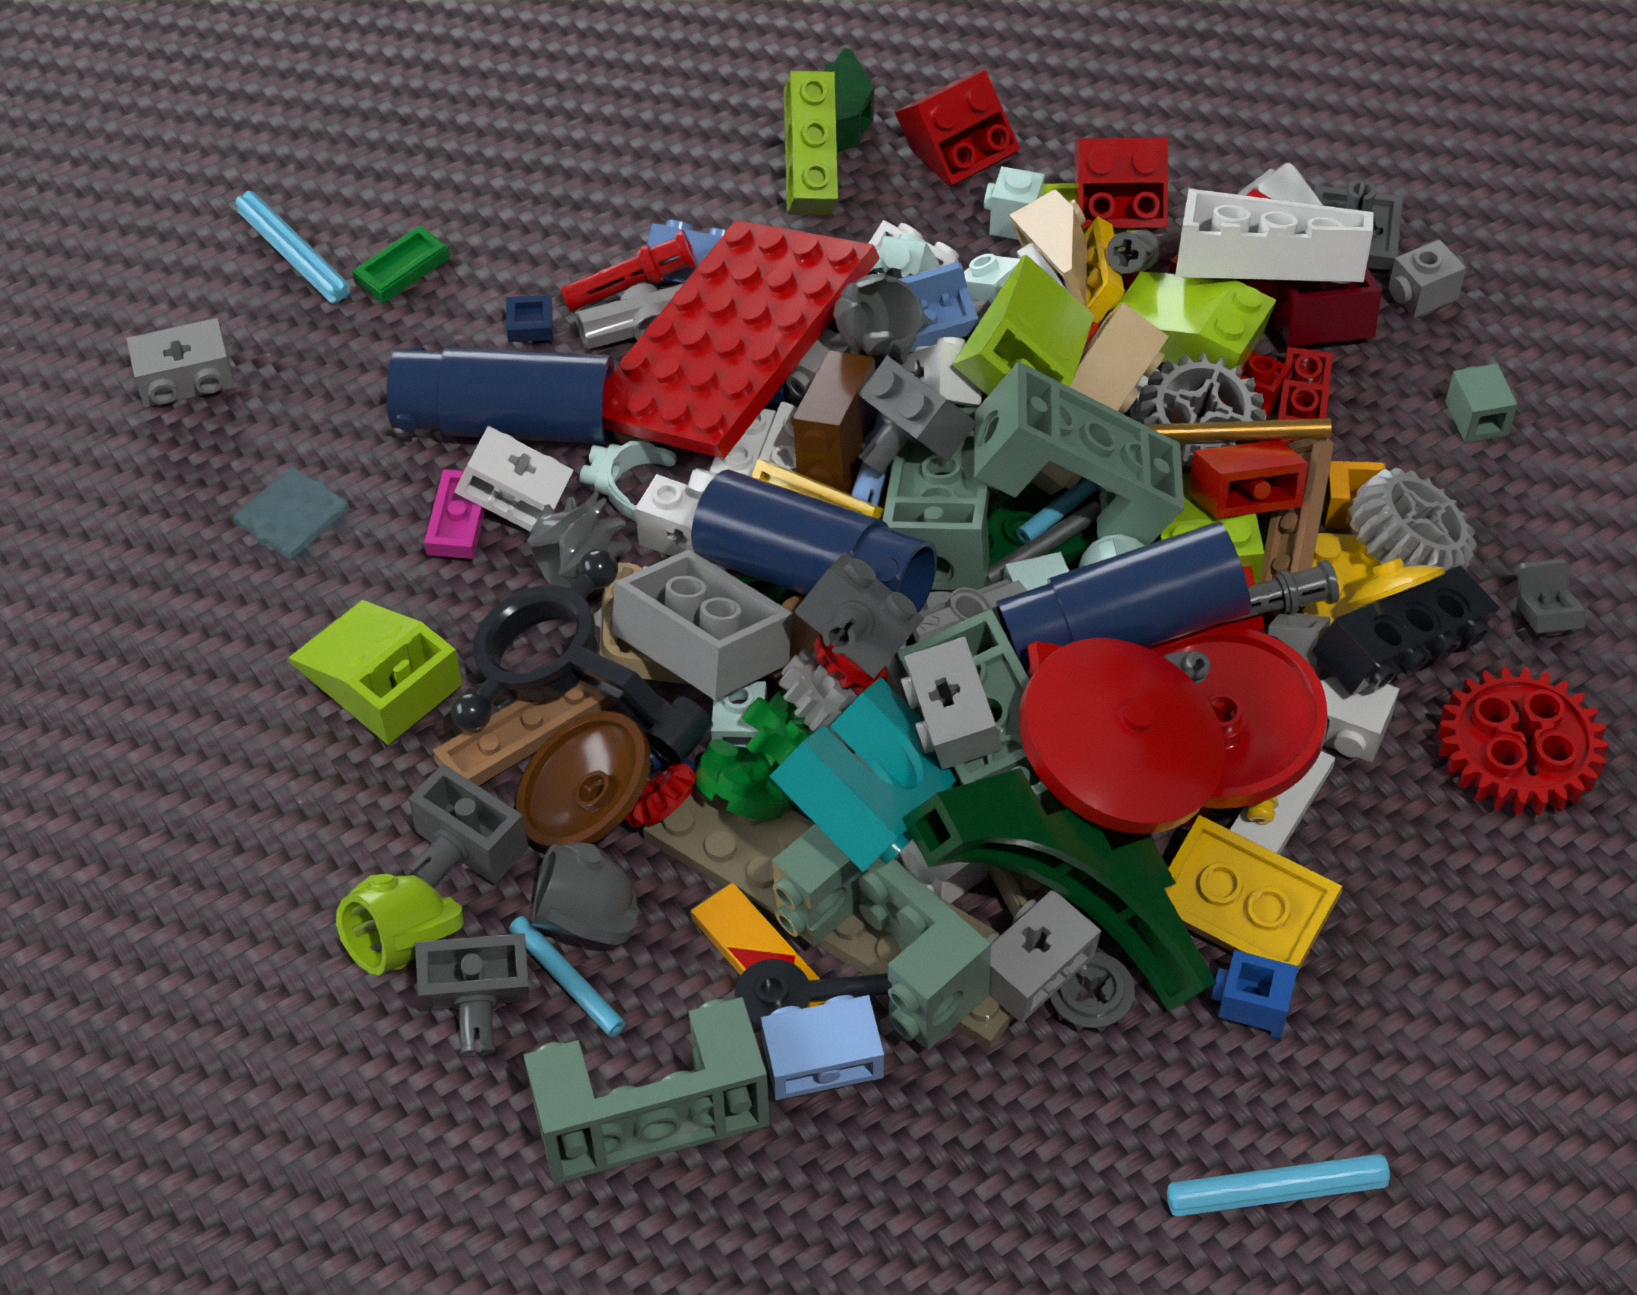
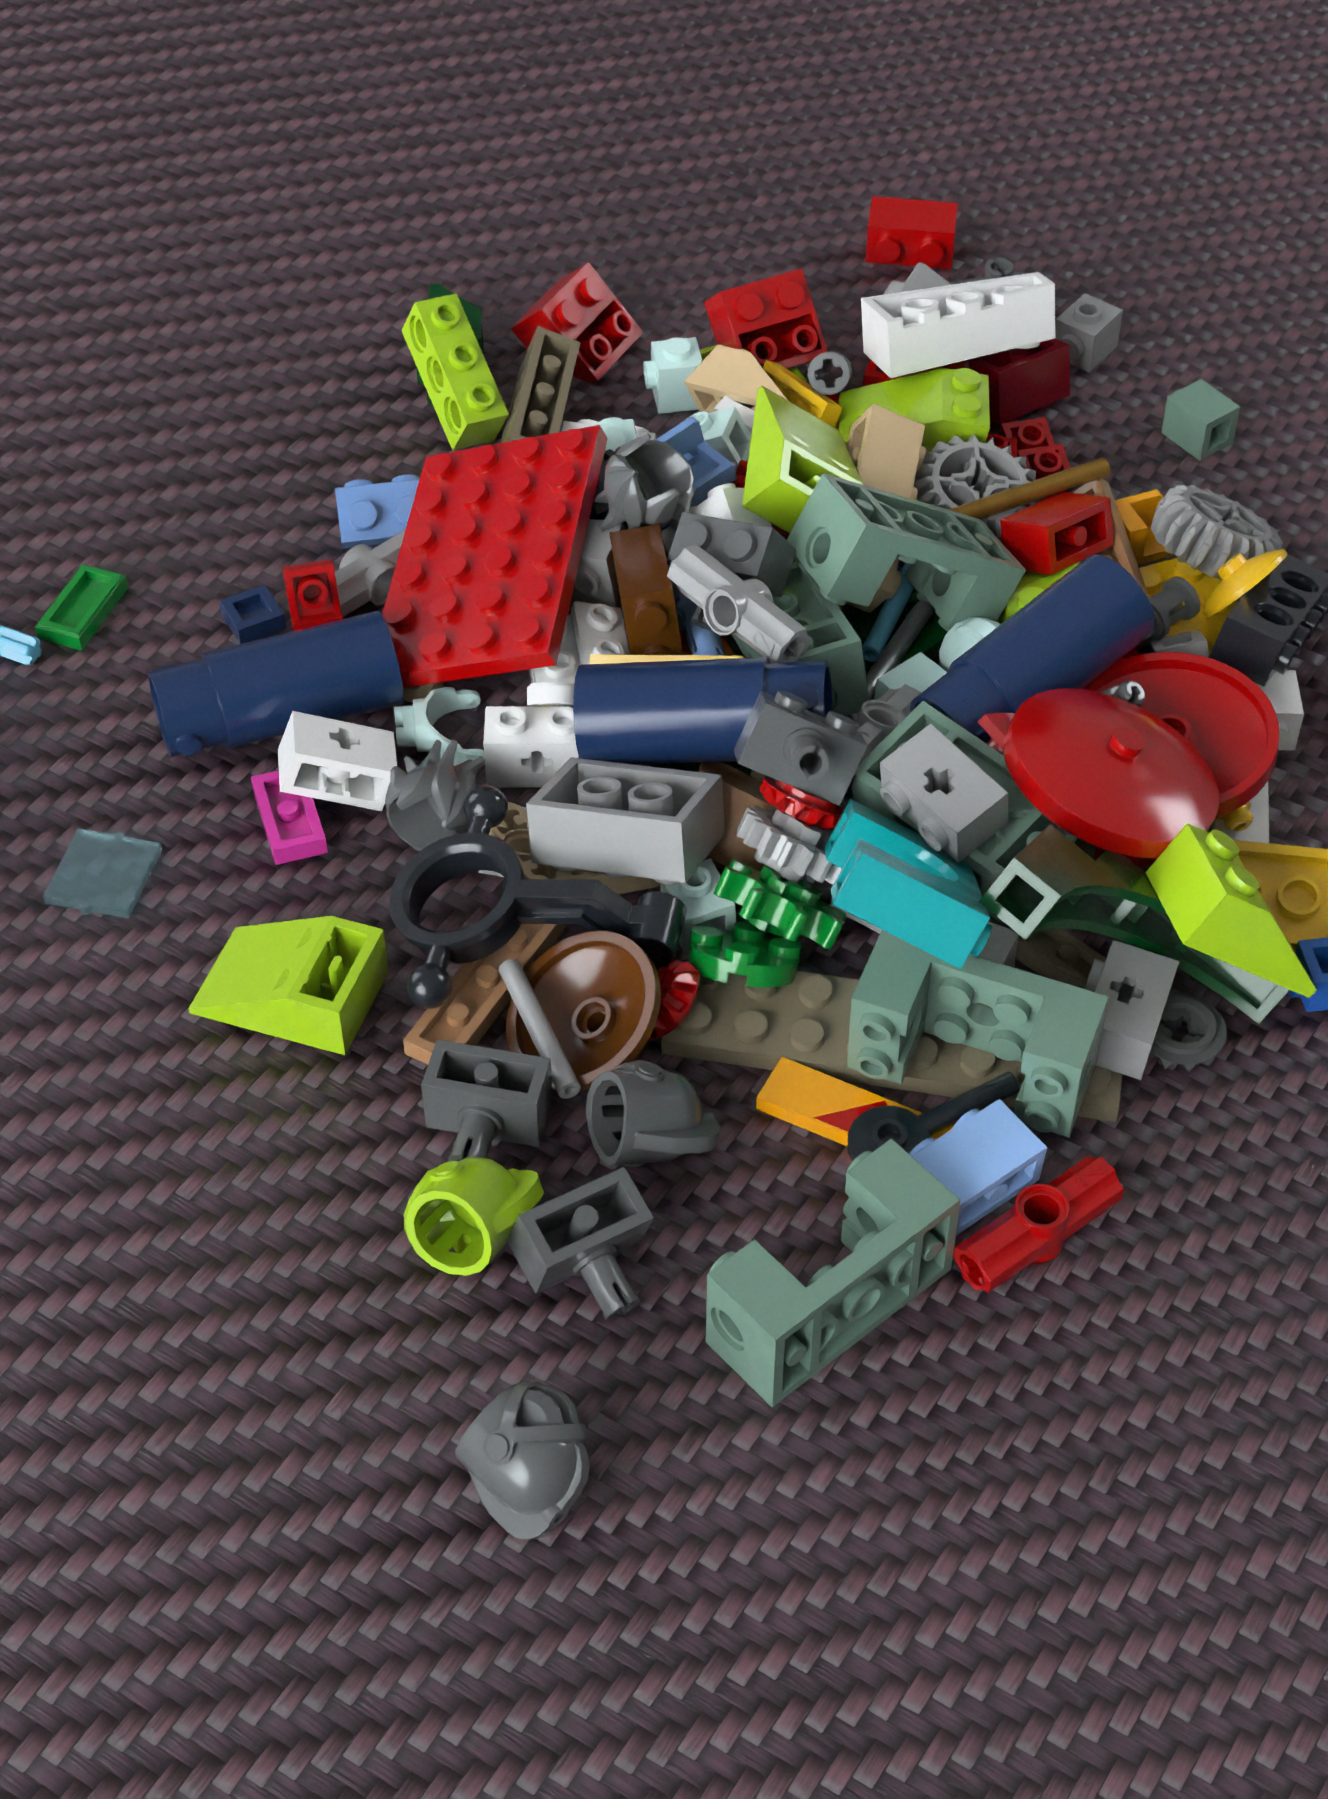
camera: 25 degrees left, 5 degrees down
(325, 1158) = (527, 1470): none -> dark grey helmet
(541, 782) = (539, 1027): none -> light grey piece
(568, 977) = (684, 1211): medium azure piece -> none
(574, 321) = (312, 594): none -> red slope
(650, 265) = (354, 526): red pin -> none
(878, 187) = (541, 386): none -> dark tan brick
(885, 463) = (738, 606): none -> light grey piece
(889, 1107) = (1014, 1238): none -> red piece
(1162, 905) = (1221, 909): none -> lime slope
(1322, 123) = (911, 232): none -> red brick

